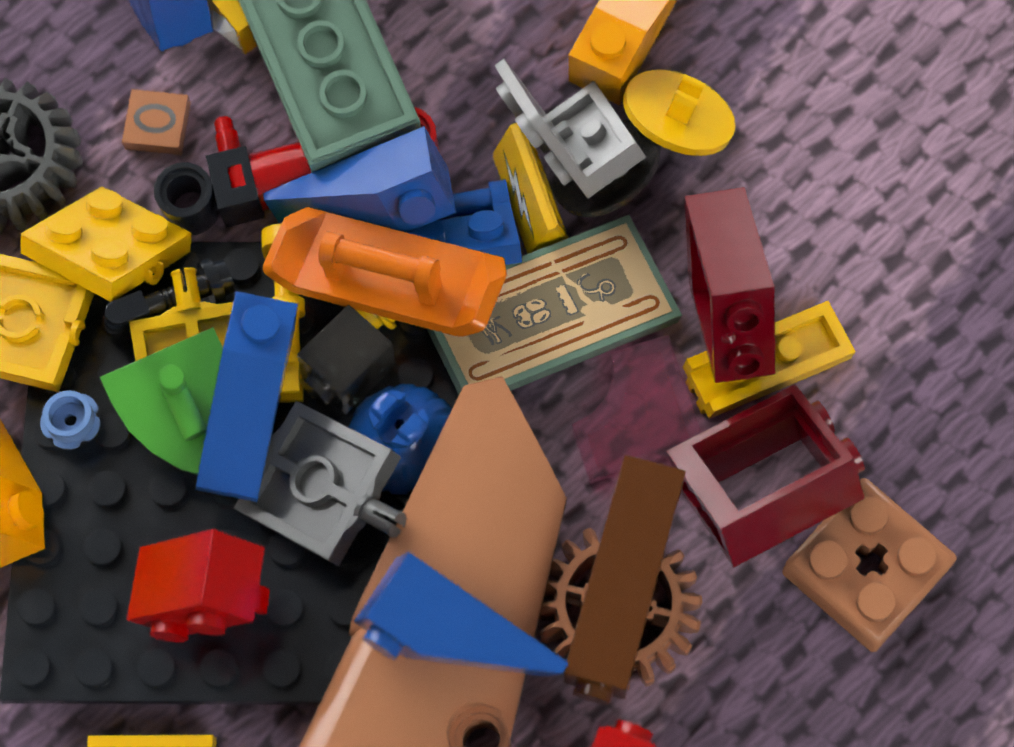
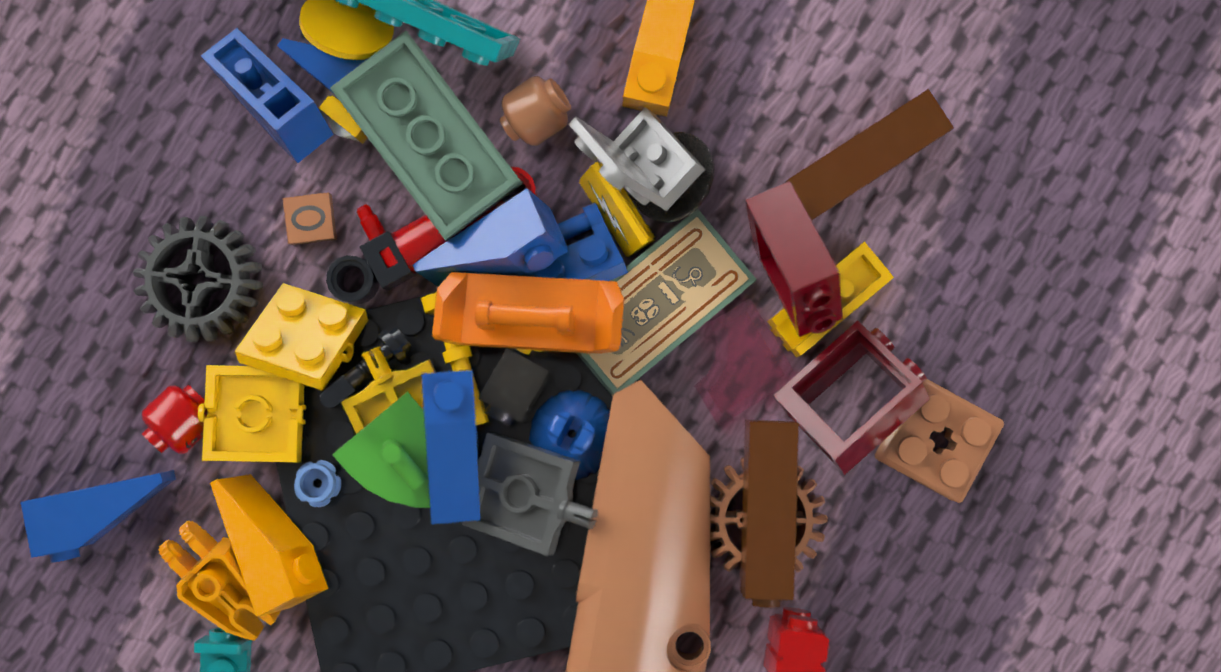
camera: 20 degrees left, 15 degrees up
(197, 585) = (455, 603): red brick -> none
(437, 621) = (648, 592): blue slope -> none
(459, 57) = (535, 111): none -> nougat head
(679, 112) = (717, 117): yellow piece -> none
(857, 198) = (870, 154): none -> reddish brown brick

